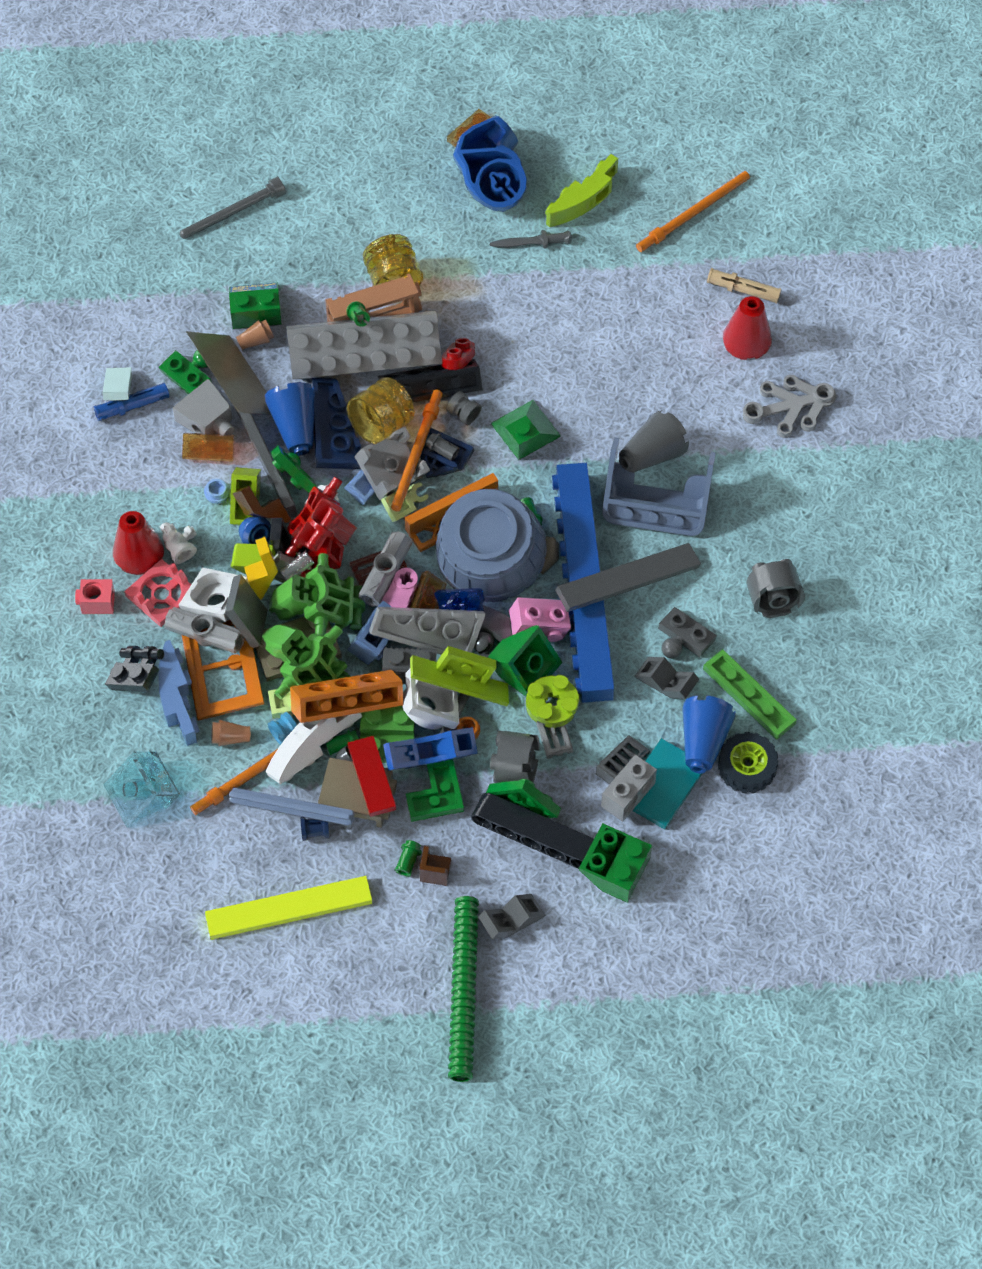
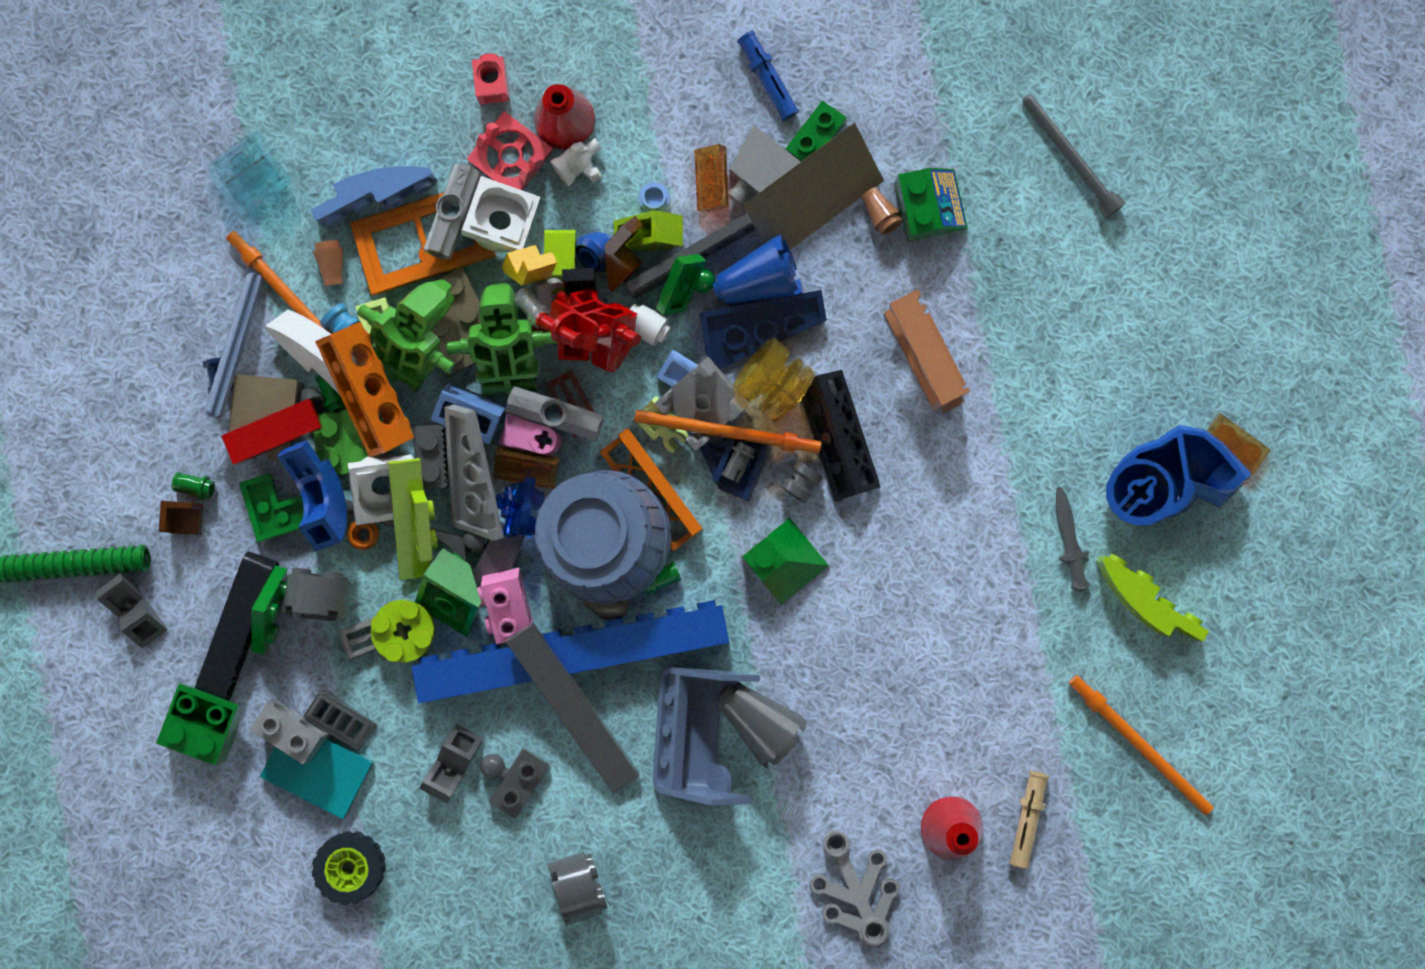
camera: 85 degrees right, 25 degrees up
(117, 384) = (787, 53): light aqua tile -> none
(134, 675) = (387, 136): black plate -> none
(246, 611) = (472, 256): dark grey tile -> none
(288, 907) = (124, 359): neon yellow tile -> none
(361, 314) = (897, 331): green pin -> none
(379, 345) = (870, 346): light grey brick -> none
(391, 259) = (1001, 365): clear yellow wheel -> none
(458, 354) = (879, 467): red plate -> none
(705, 730) = (369, 816): blue cone -> none
(749, 694) = (439, 863): bright green plate -> none

